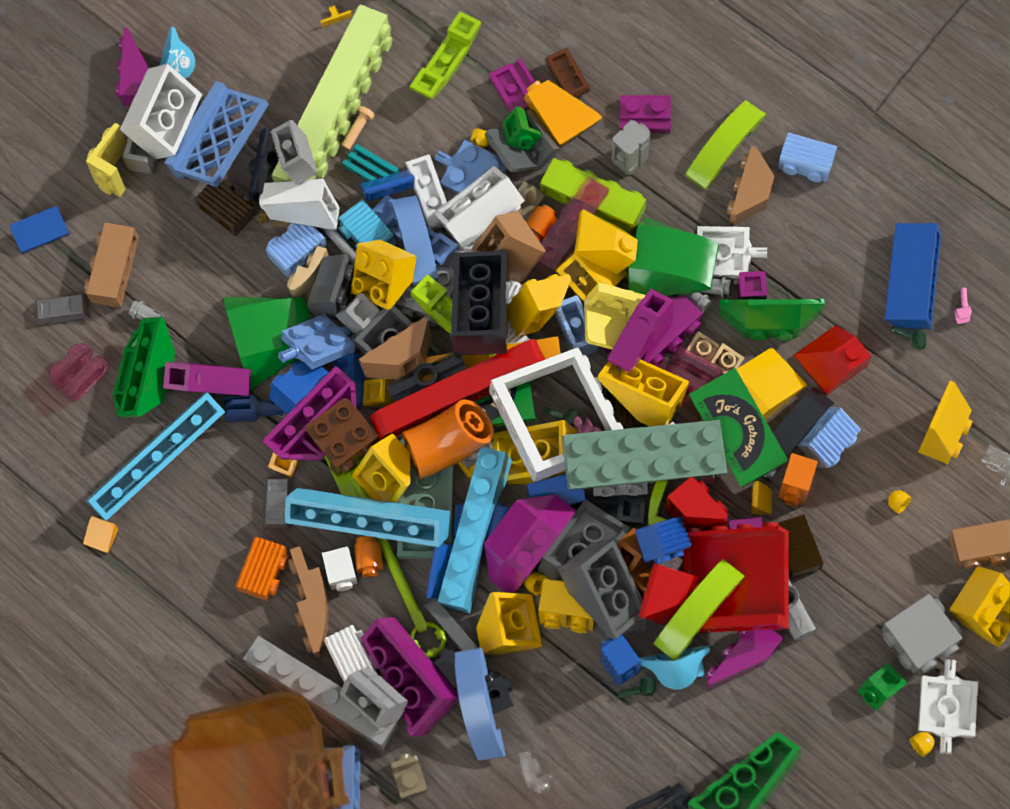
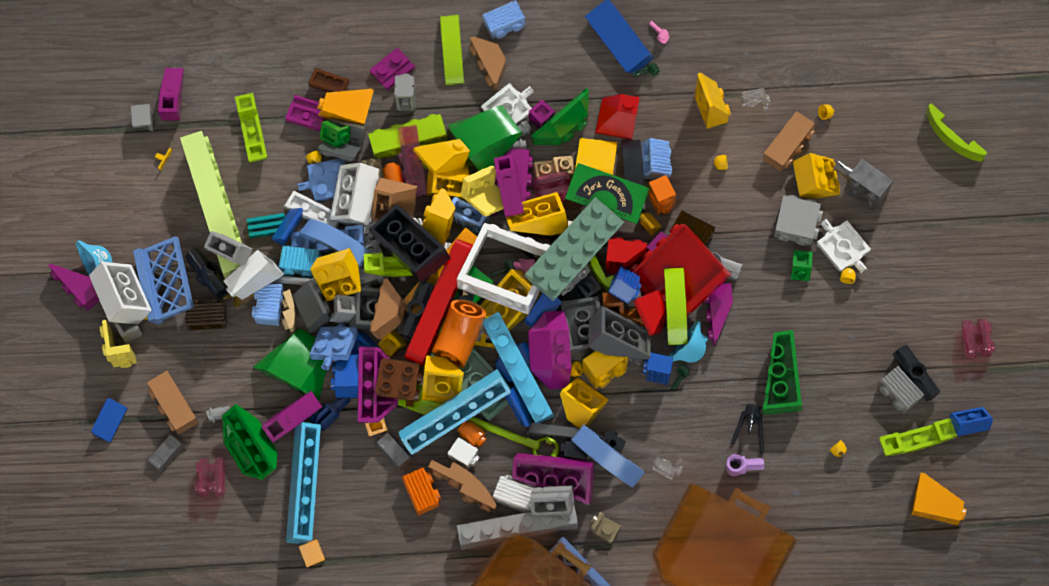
camera: 45 degrees left, 0 degrees up
(364, 115) = (235, 199): light nougat piece -> none

